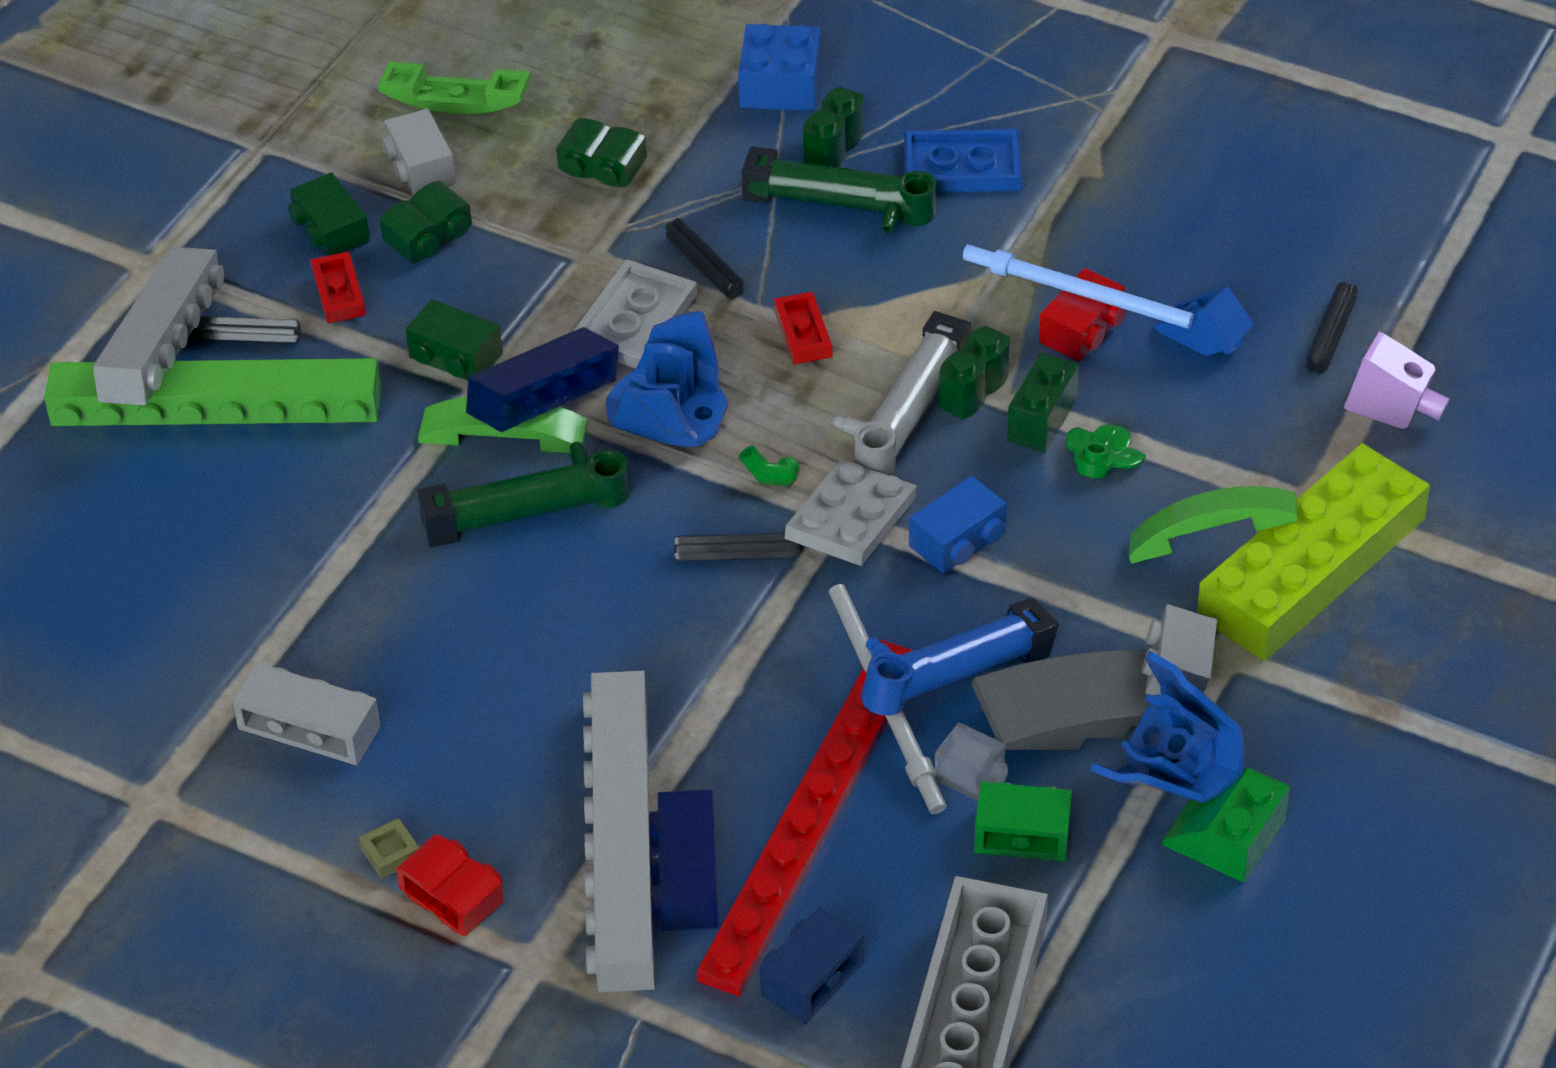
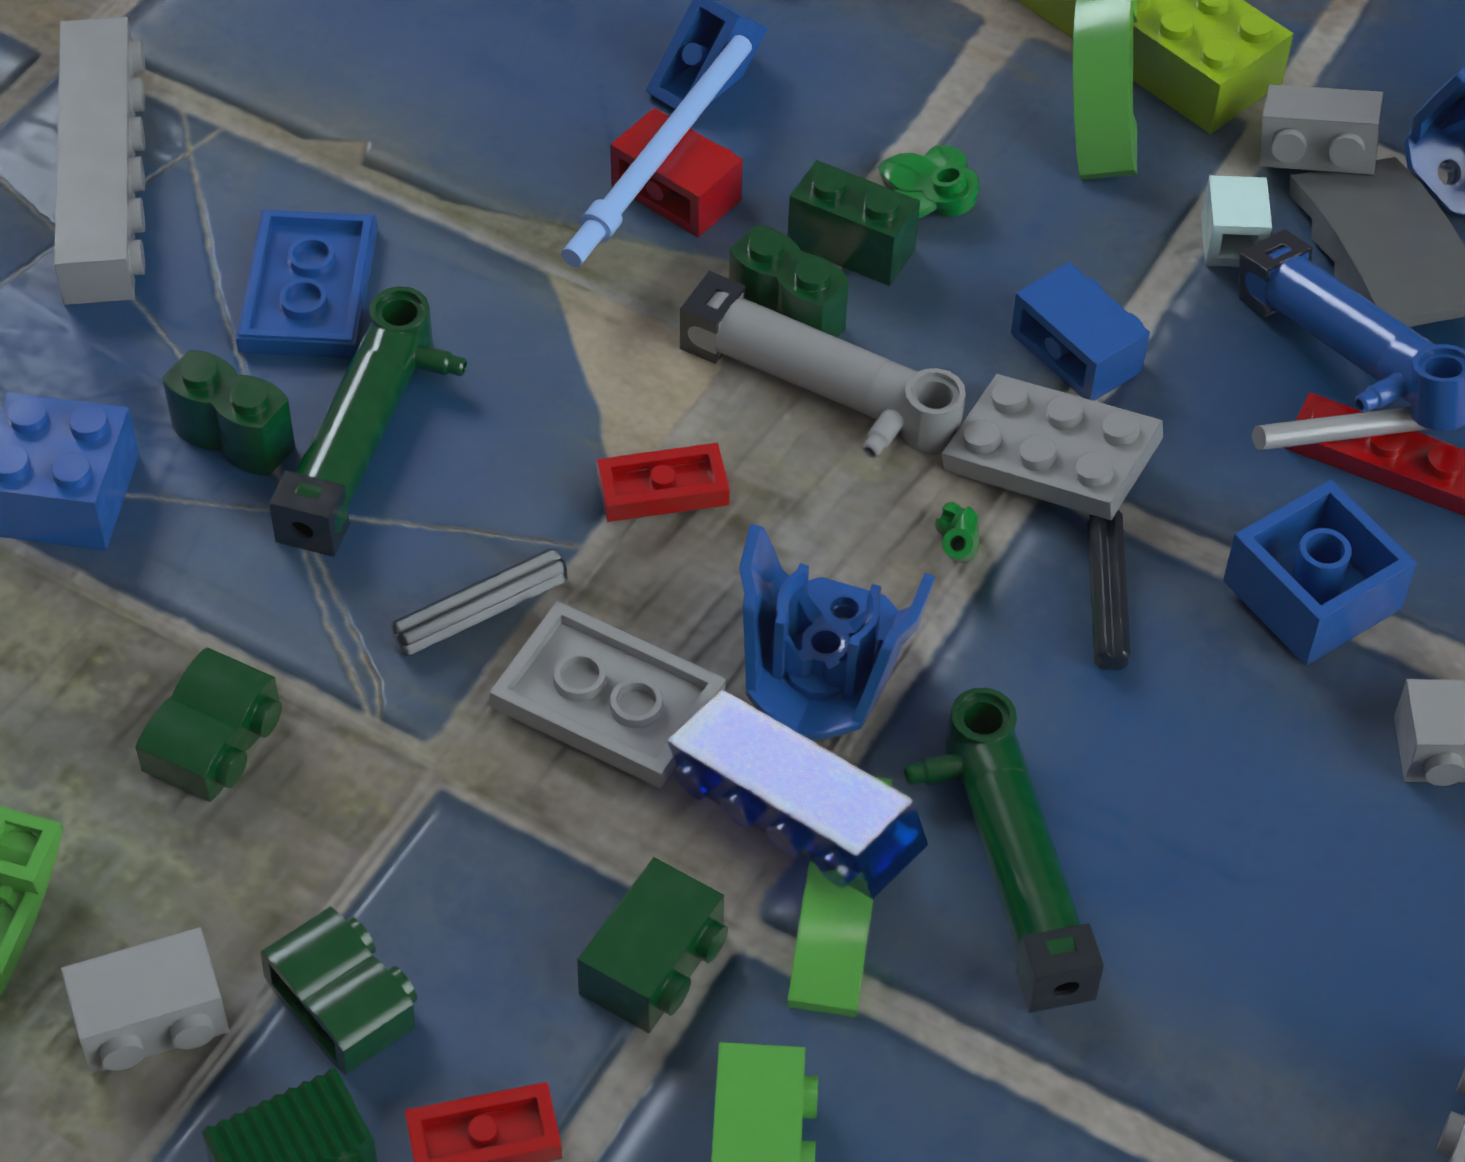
camera: 90 degrees left, 5 degrees up
(739, 636) = (1319, 571): none -> blue brick
(1048, 49) = (98, 163): none -> light grey brick
(1085, 612) = (1234, 217): none -> light aqua brick

